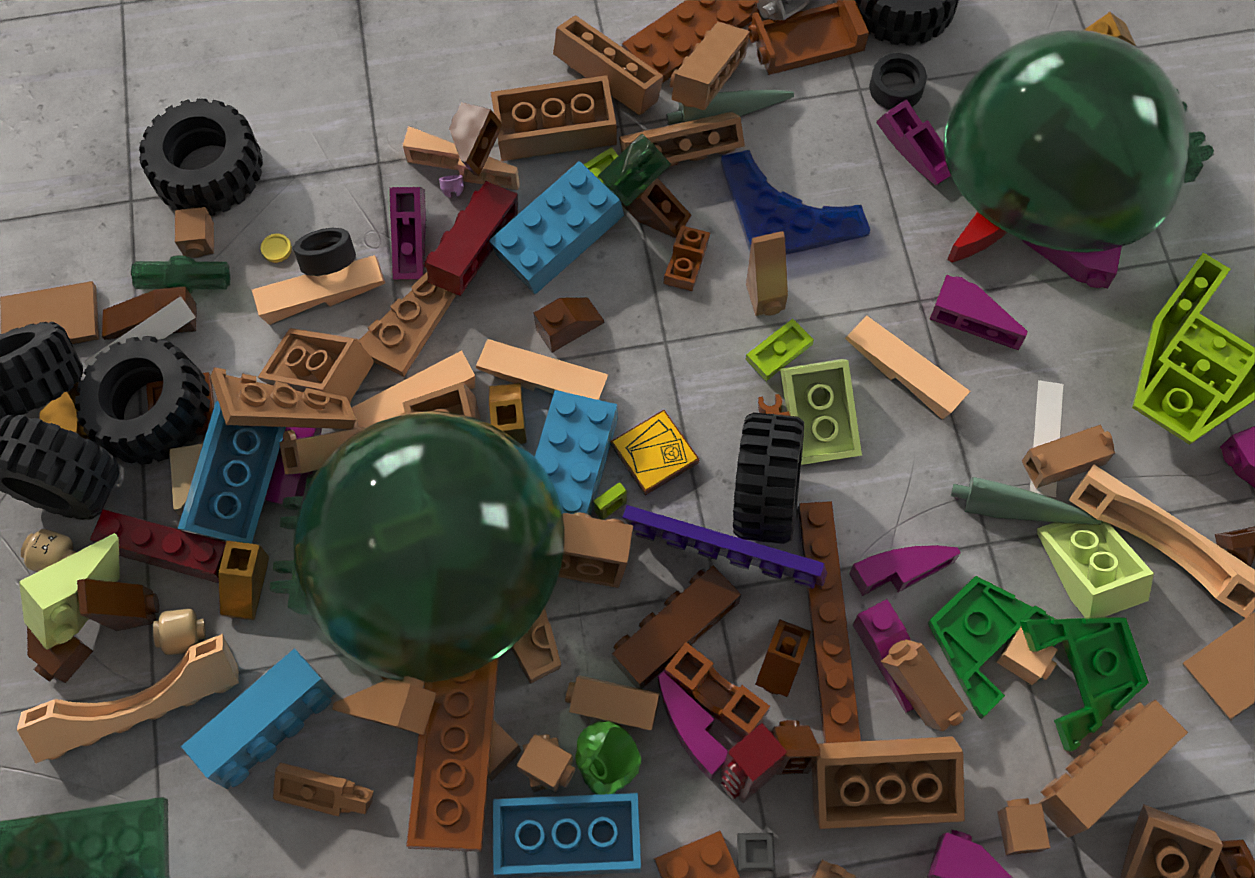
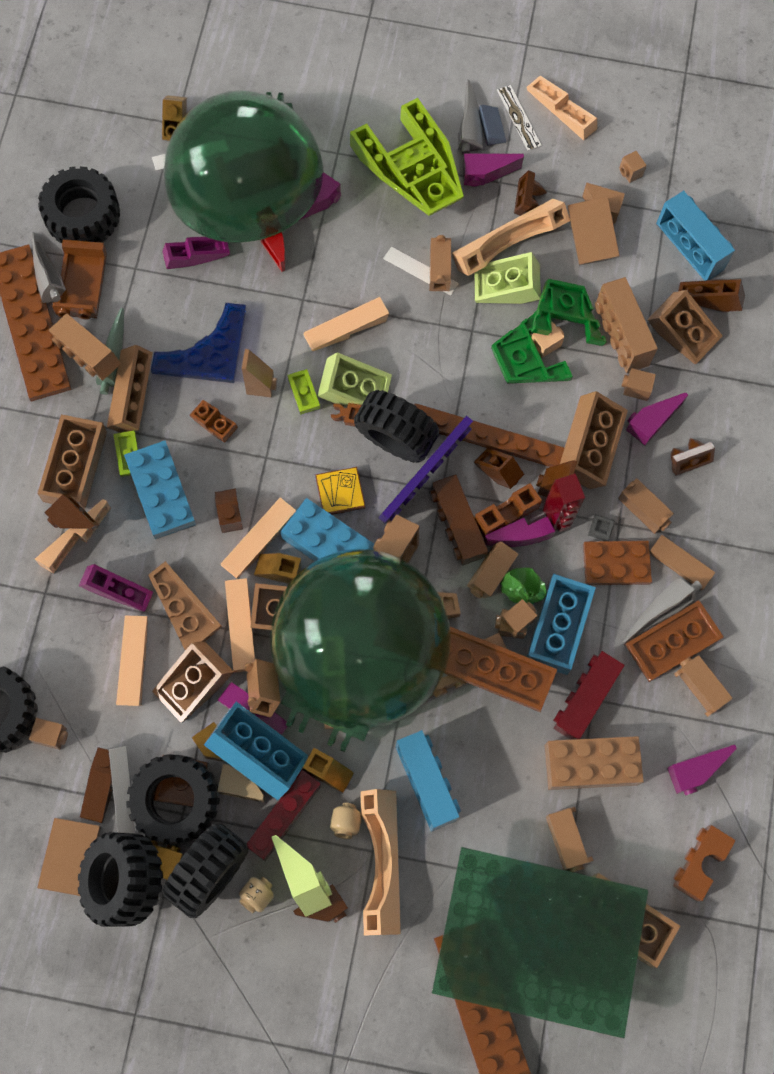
camera: 75 degrees left, 5 degrees up
(117, 604) = (318, 848): reddish brown slope -> none
(180, 272) = (78, 753): clear green piece -> none
(261, 404) = (228, 702): medium nougat wing -> none
(276, 248) = (83, 683): light yellow piece -> none
(319, 791) = (481, 761): medium nougat hinge -> none
(324, 251) = (97, 643): black tyre -> none
(391, 703) = (452, 693): medium nougat slope -> none
(450, 184) = (90, 548): lavender hinge -> none
(467, 242) = (143, 546): dark red brick -> none
(597, 55) = (45, 412): medium nougat brick -> none
(610, 501) = (364, 526): lime tile -> none
(634, 169) = (145, 423): clear green brick -> none
(659, 209) = (168, 425): reddish brown slope -> none
(879, 631) = (518, 408): magenta slope -> none
(901, 567) = (471, 383): magenta slope -> none
(902, 64) = (143, 229): black tyre -> none
(924, 685) = (546, 398): medium nougat brick -> none
(973, 311) = (326, 272): magenta slope -> none
(1011, 502) = (455, 306): sand green piece -> none

